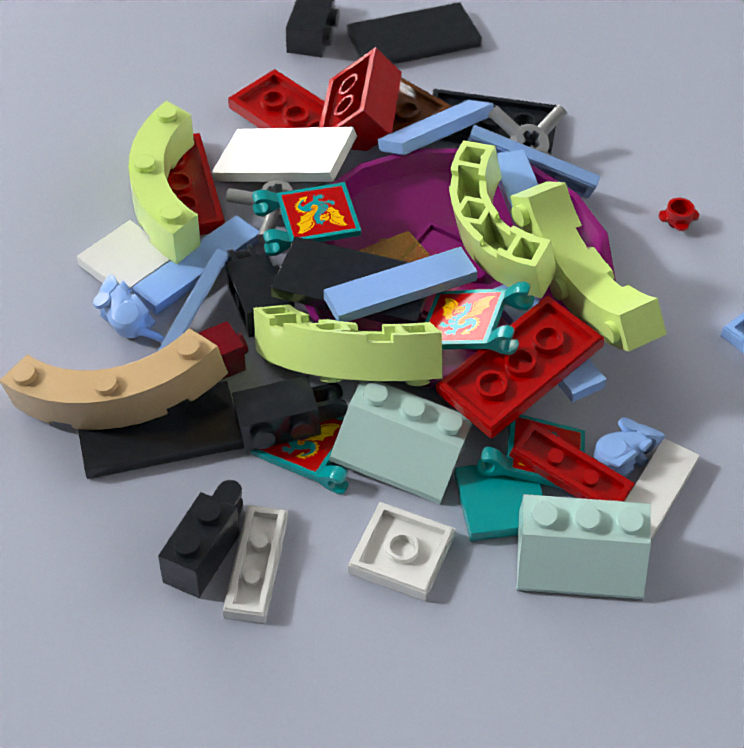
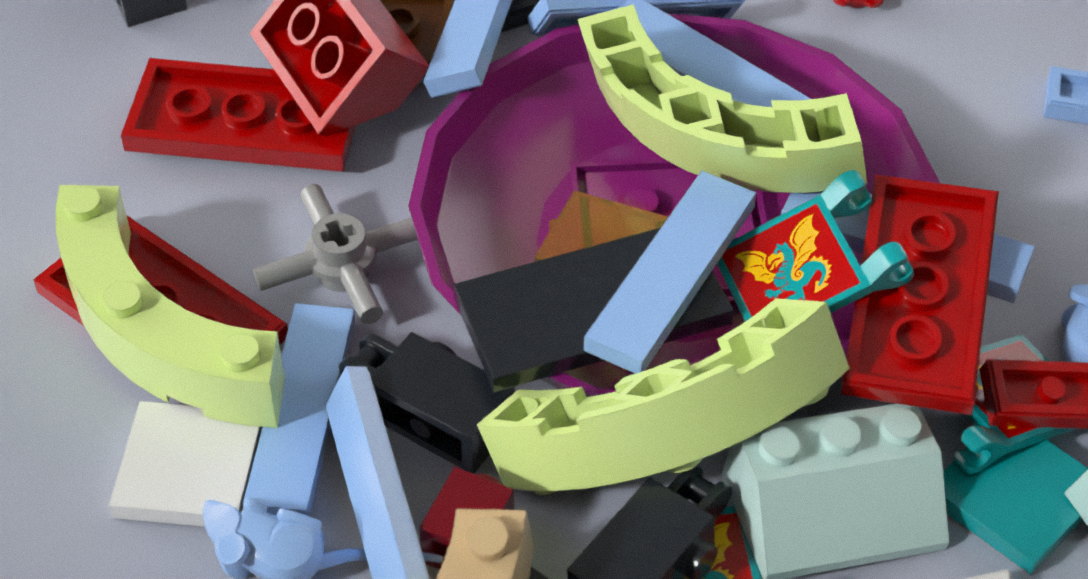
camera: 35 degrees left, 0 degrees up
(285, 154) = (293, 176): white tile -> none
(307, 213) = (434, 237): flag -> none
(582, 276) = (901, 137): yellowish green brick -> none

